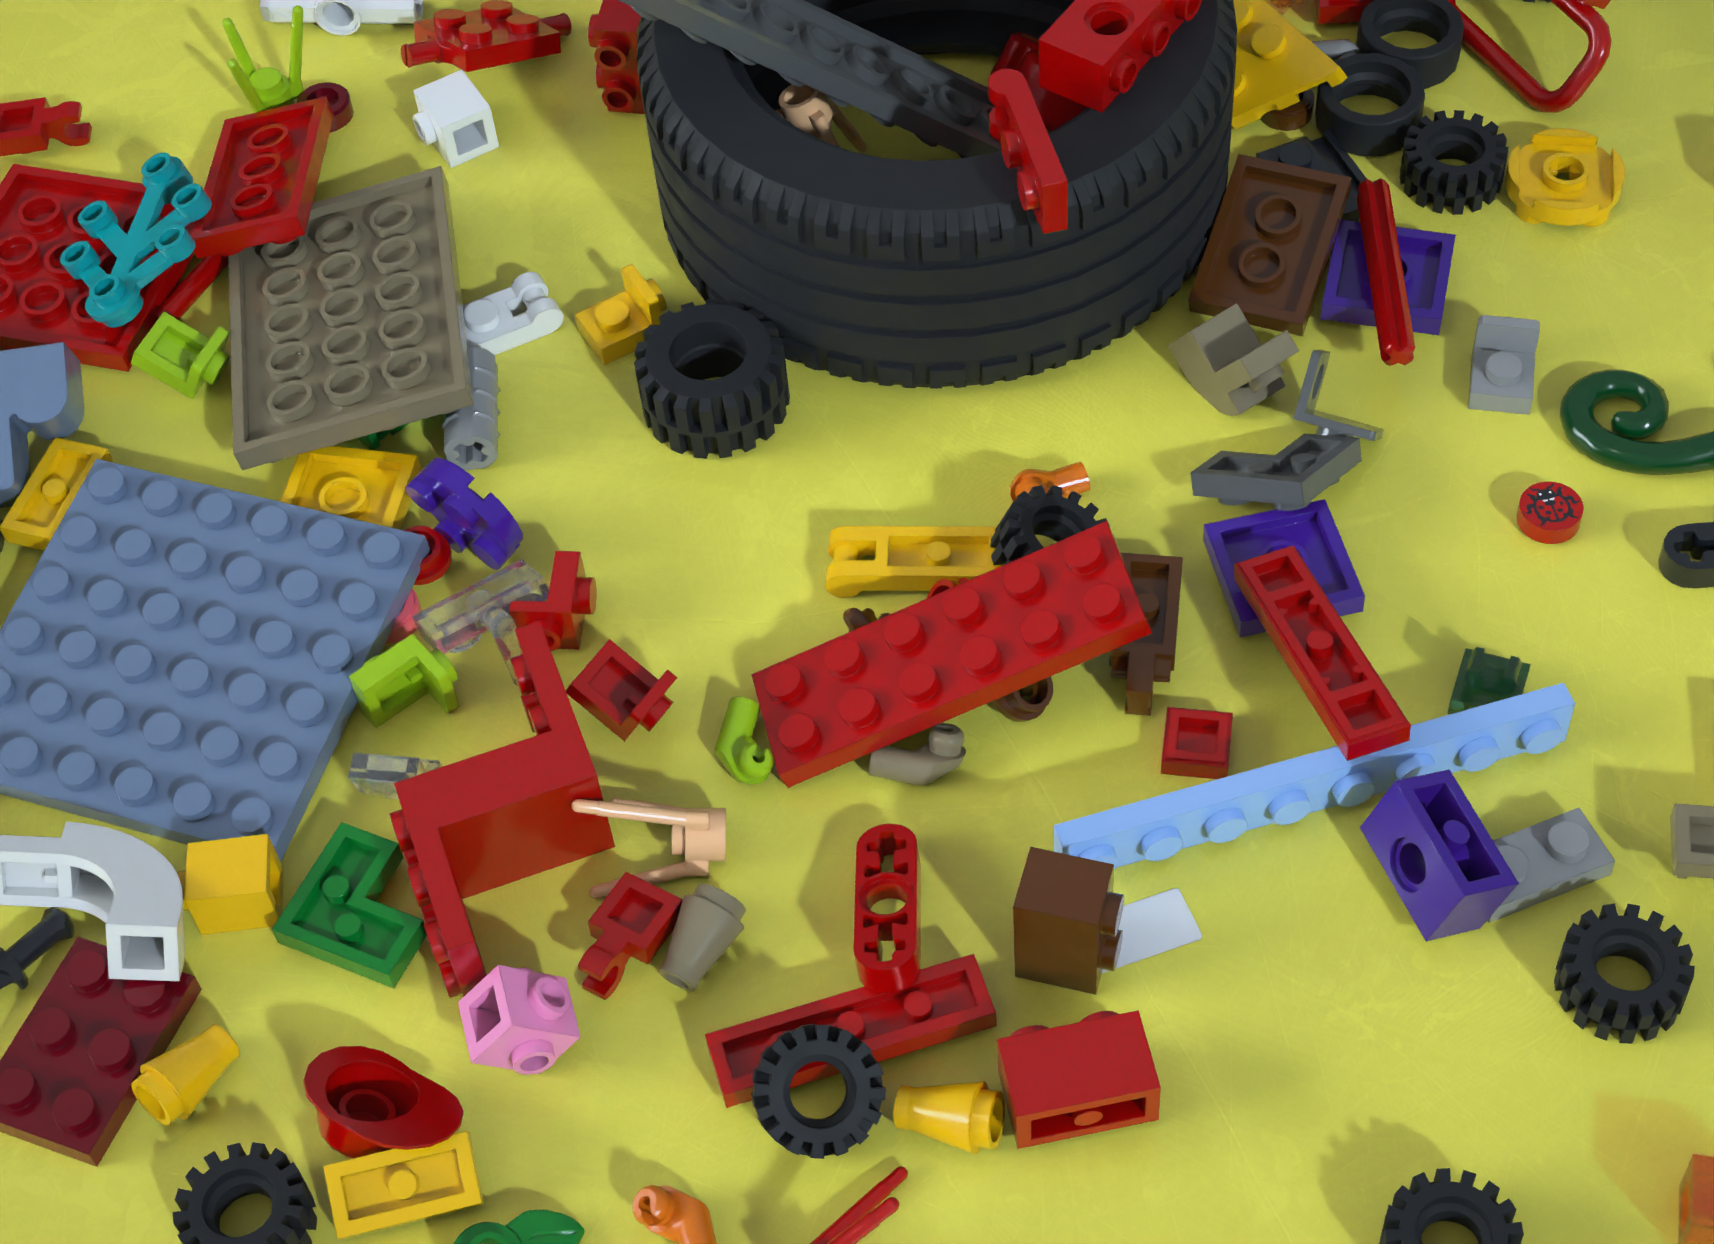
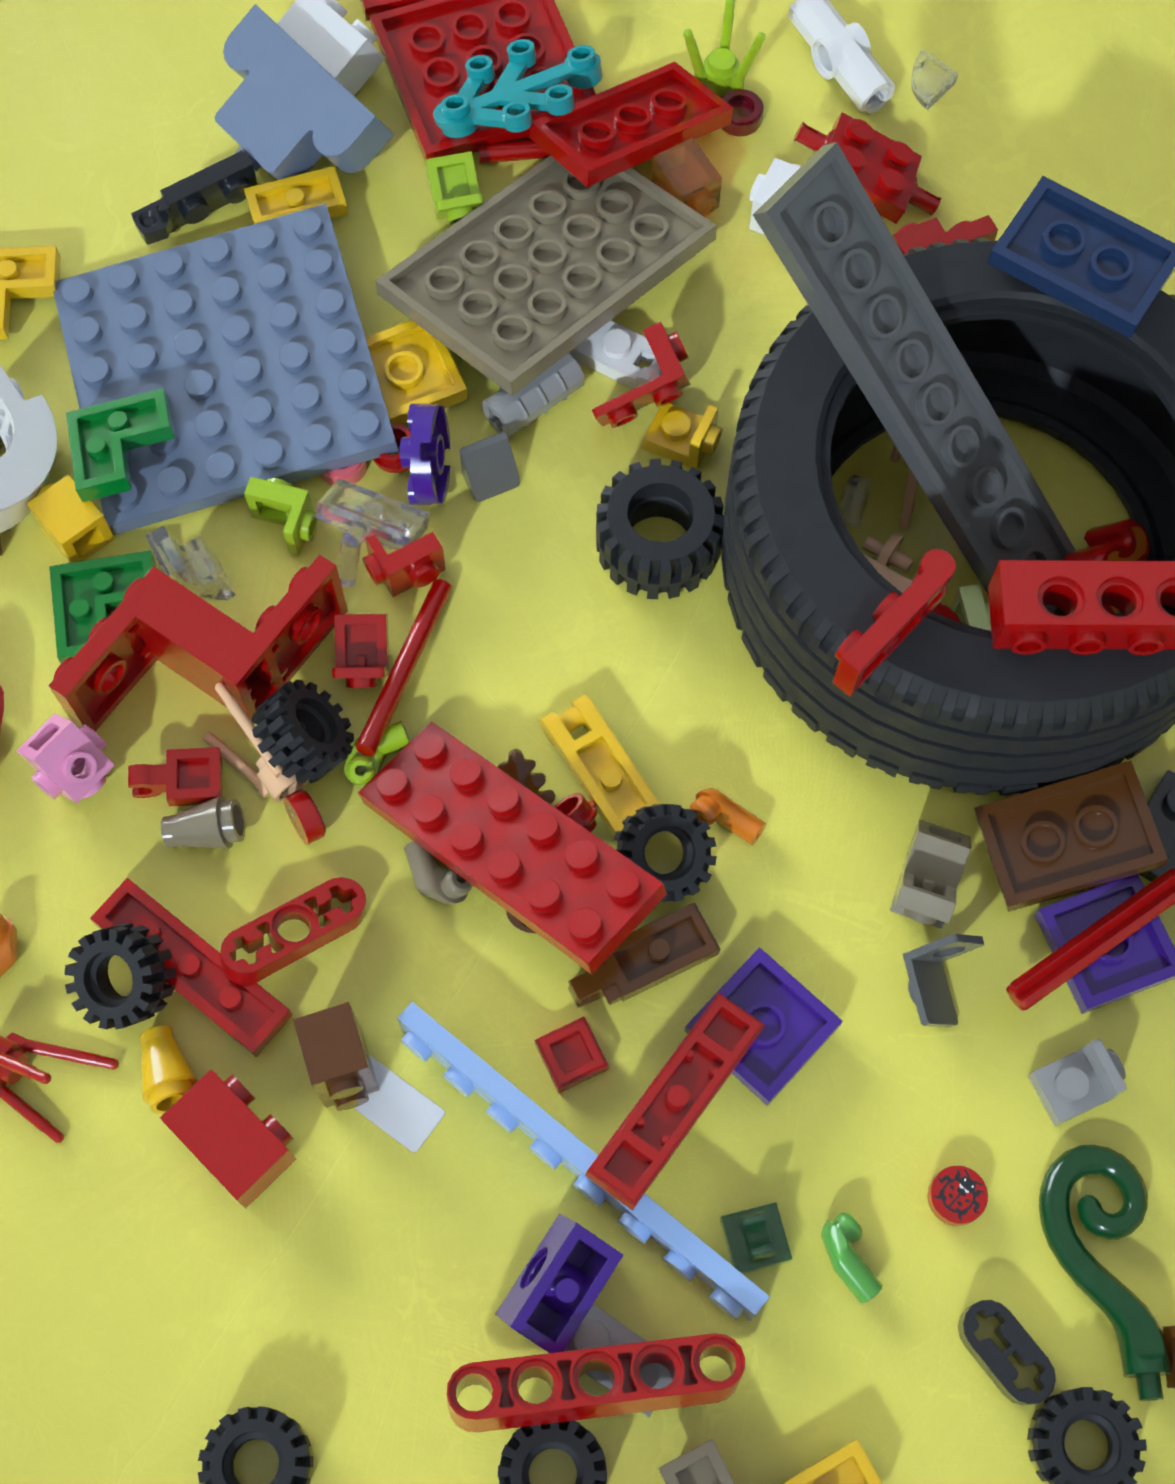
camera: 50 degrees right, 15 degrees up
(180, 777) = (106, 432): none -> green plate
(359, 163) = (688, 176): none -> clear orange brick
(518, 483) = (489, 467): none -> dark grey slope
(549, 271) = (661, 390): none -> red bracket
(666, 657) = (403, 668): none -> red bar
(678, 775) = (302, 731): none -> black tyre
(766, 837) = (304, 816): none -> red tile
(1283, 479) = (841, 984): dark grey plate -> none
(1537, 621) = (844, 1258): none -> bright green arm
(1561, 865) = (618, 1362): none -> red beam

